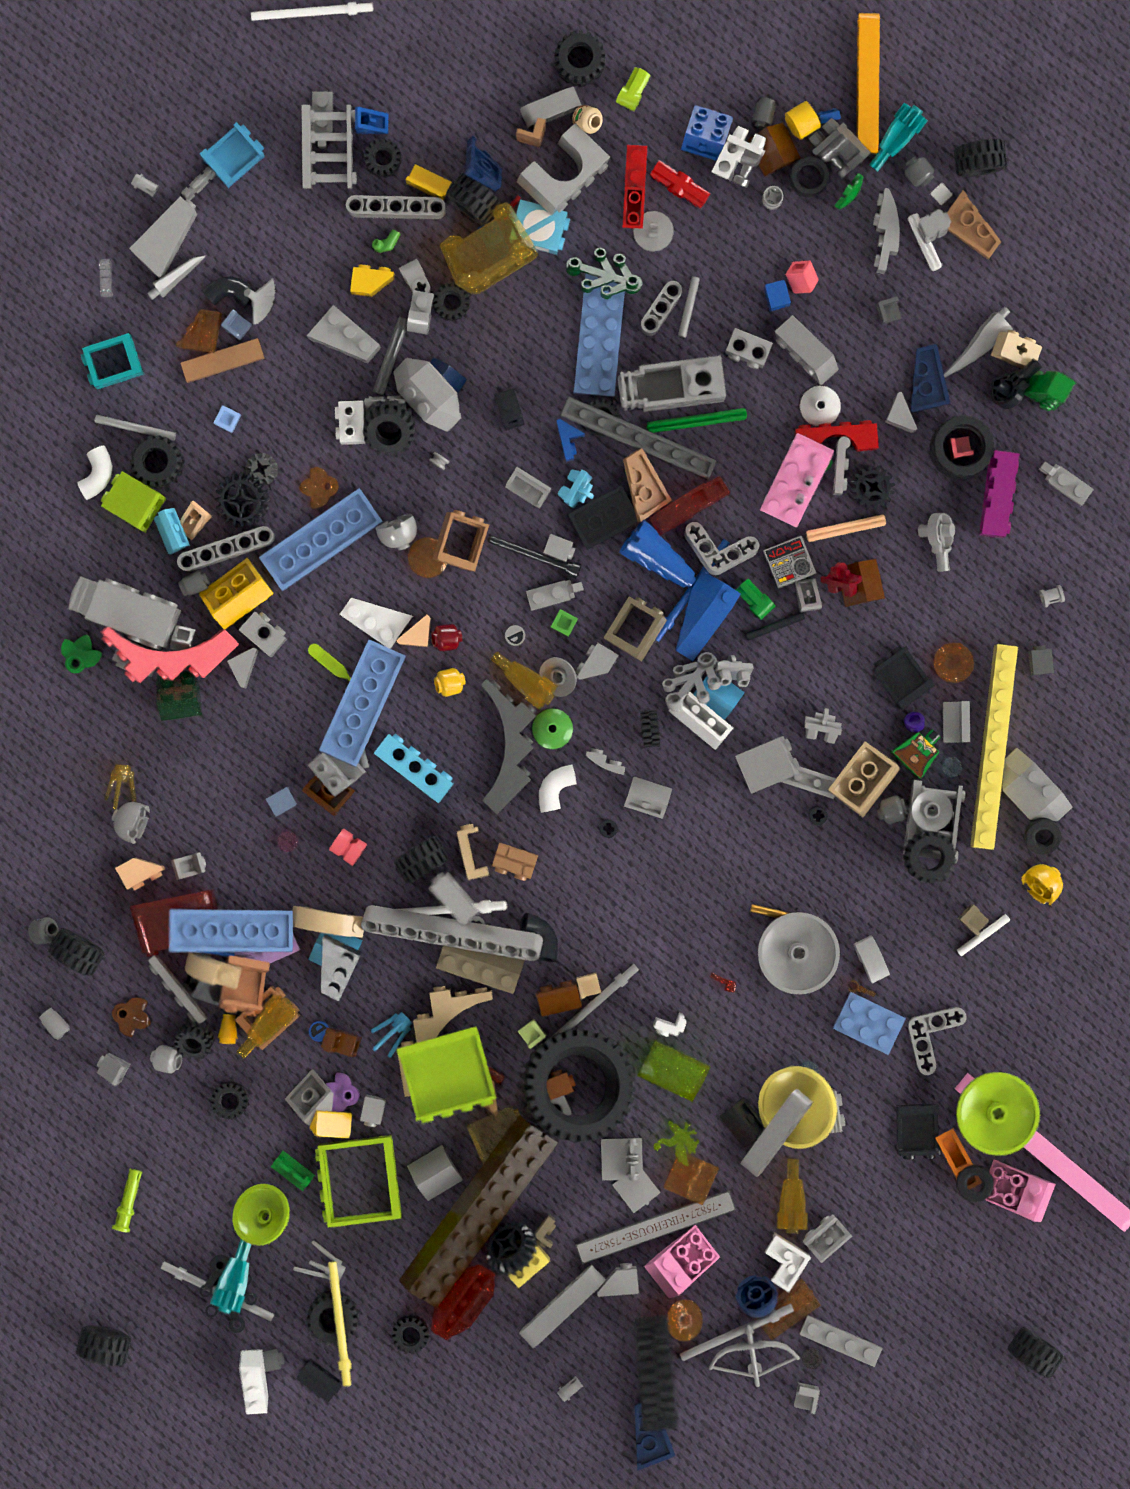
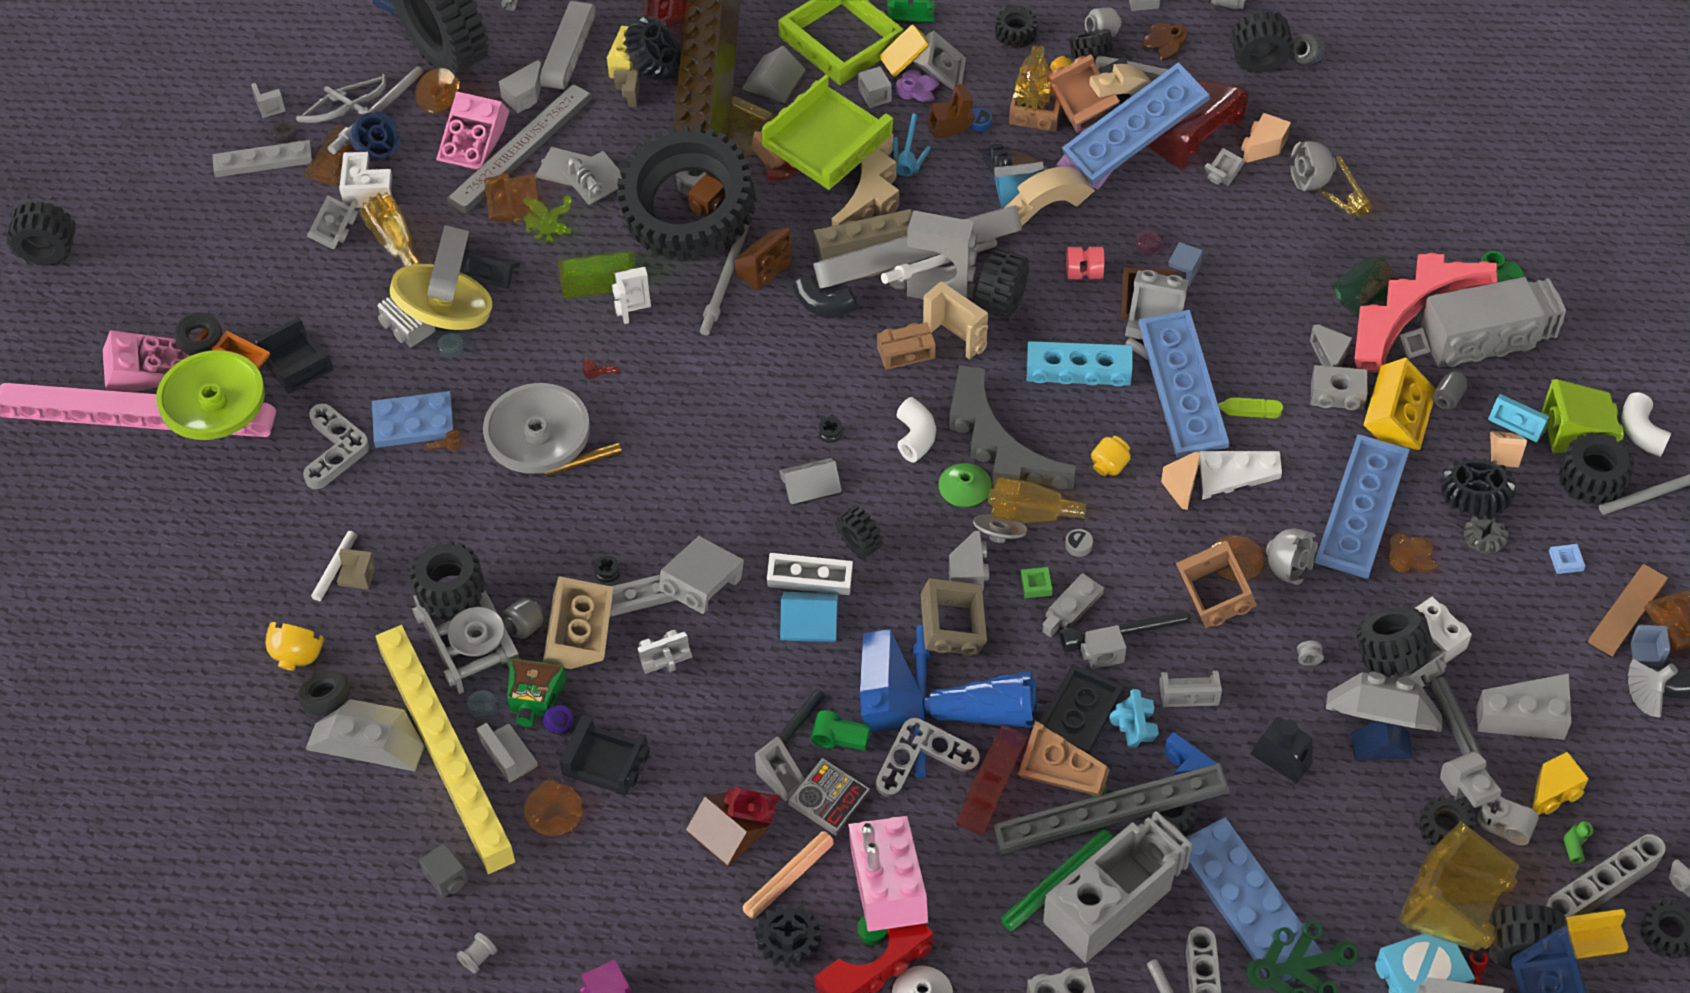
camera: 150 degrees right, 35 degrees down
(215, 548) = (1448, 438): light grey beam -> none
(446, 637) = (1150, 493): dark red head -> none
(532, 1033) = (765, 222): yellowish green panel -> none
(588, 985) = (745, 288): tan panel -> none
(599, 758) = (890, 478): light grey slope -> none
(705, 662) = (848, 600): light grey plant -> none
(733, 670) = (798, 647): light grey hips -> none
(841, 464) = (846, 934): light grey plate -> none
(871, 959) = (451, 470): light grey slope -> none
(939, 537) = (662, 934): light grey pin -> none

